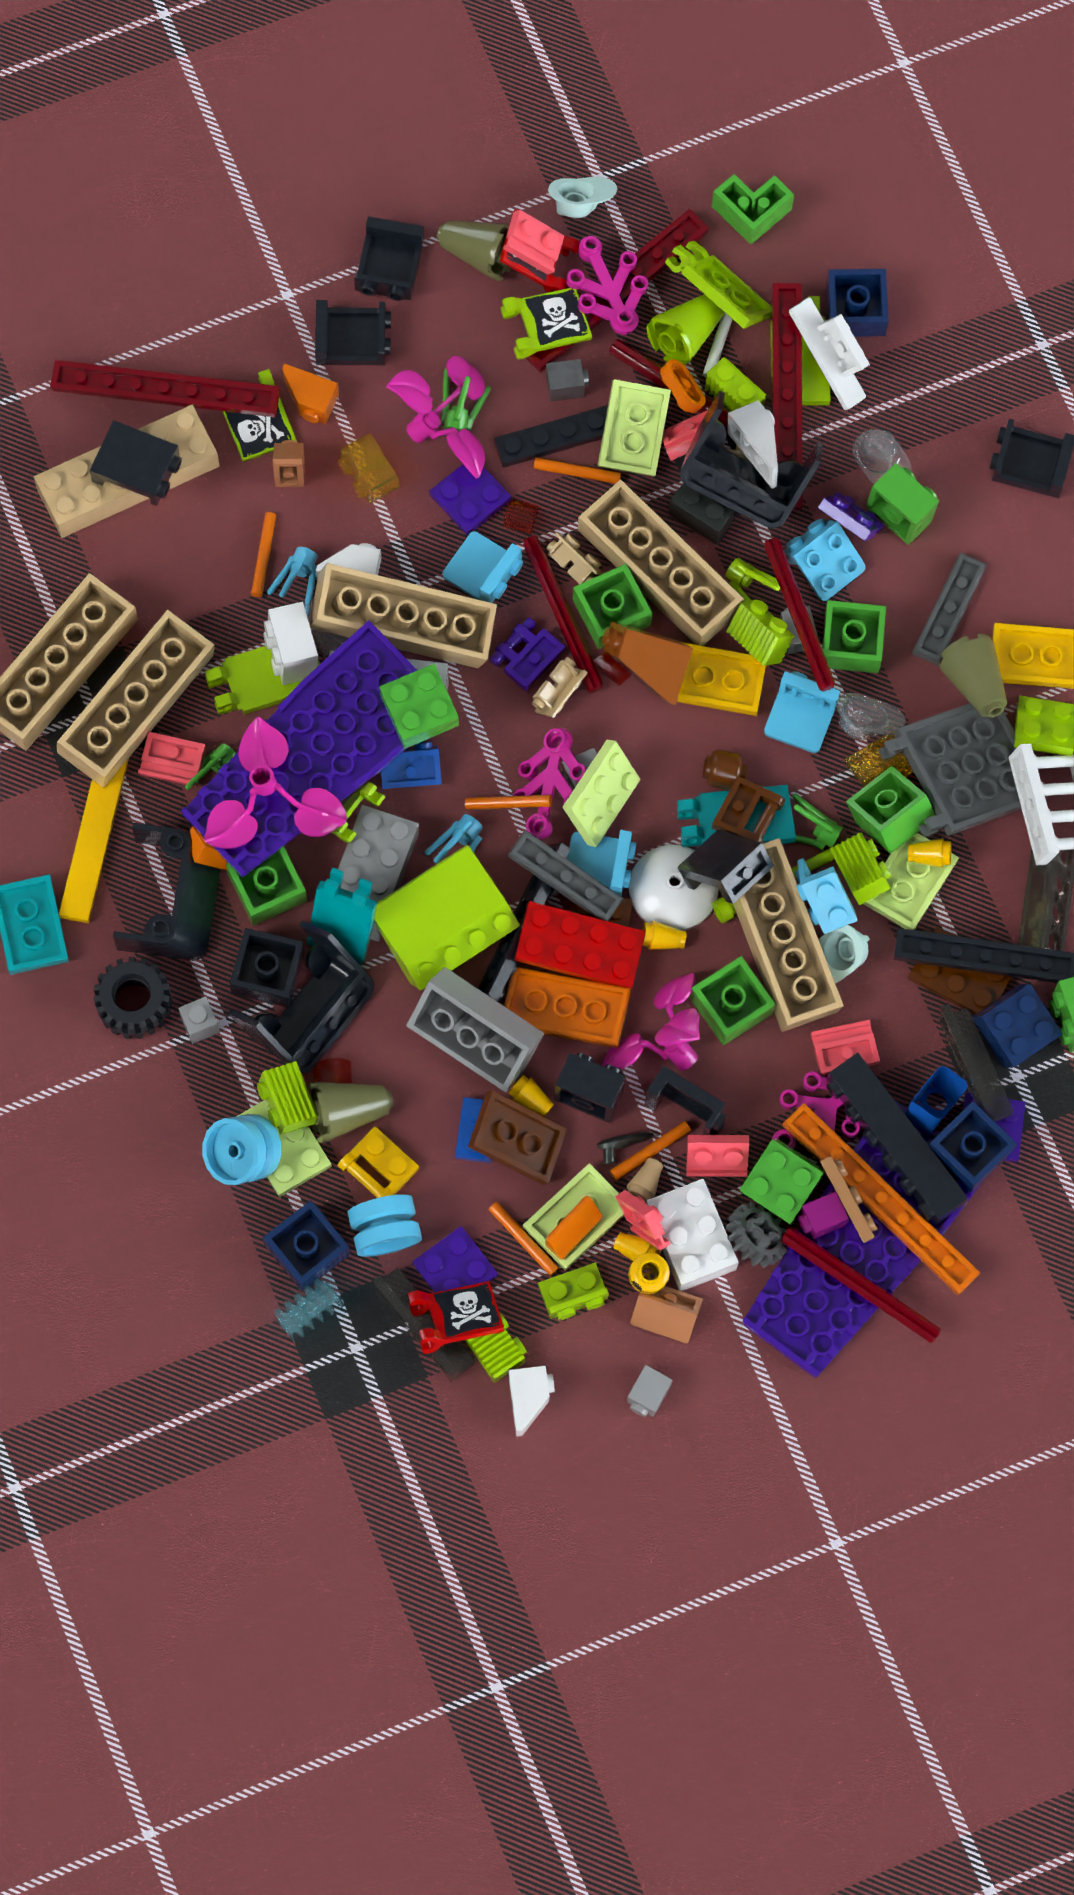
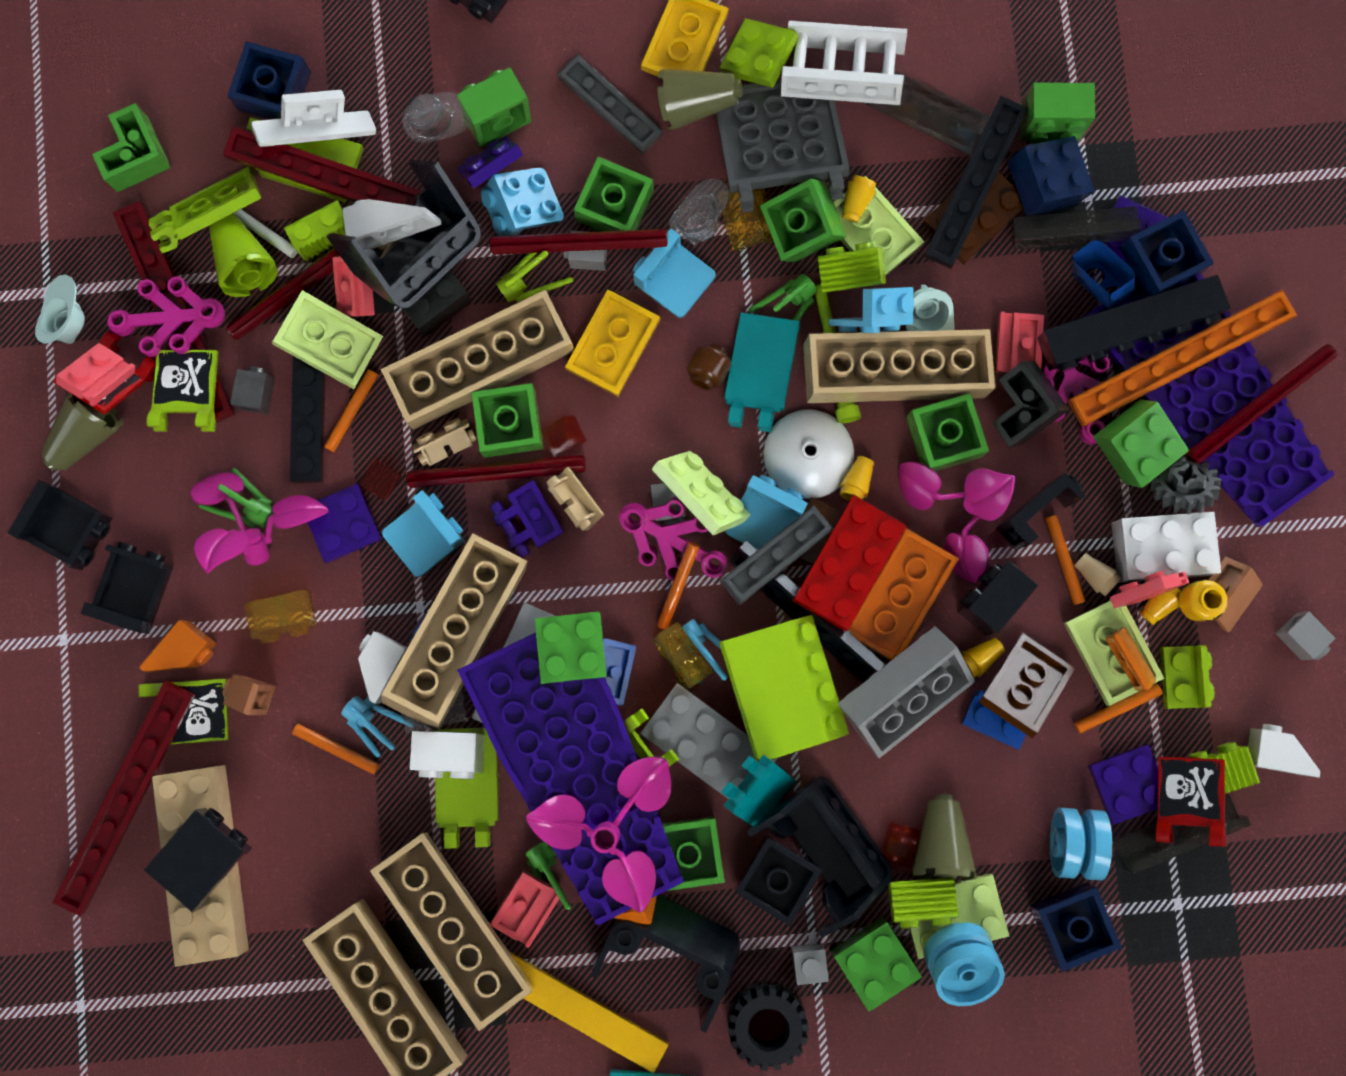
camera: 65 degrees left, 10 degrees up
(217, 1078) = (876, 964): none -> bright green brick
(307, 1308) = (1137, 942): clear light blue piece -> none
(384, 1158) = (1001, 818): yellow plate -> none
(444, 823) = (682, 655): none -> clear yellow bracket
(610, 1144) = (1049, 588): pearl dark grey bar -> none
(650, 658) = (580, 397): dark orange slope -> none
(682, 386) = (300, 277): orange plate -> none
(717, 1155) = (1098, 492): coral plate -> none
(726, 863) = (821, 393): black panel -> none
(740, 806) = (757, 364): reddish brown plate -> none
(760, 632) = (582, 286): lime brick -> none
(784, 1068) = (1035, 403): none -> pearl dark grey brick
(823, 1215) = (1190, 415): magenta brick -> none
(849, 1197) = (1183, 386): medium nougat plate -> none

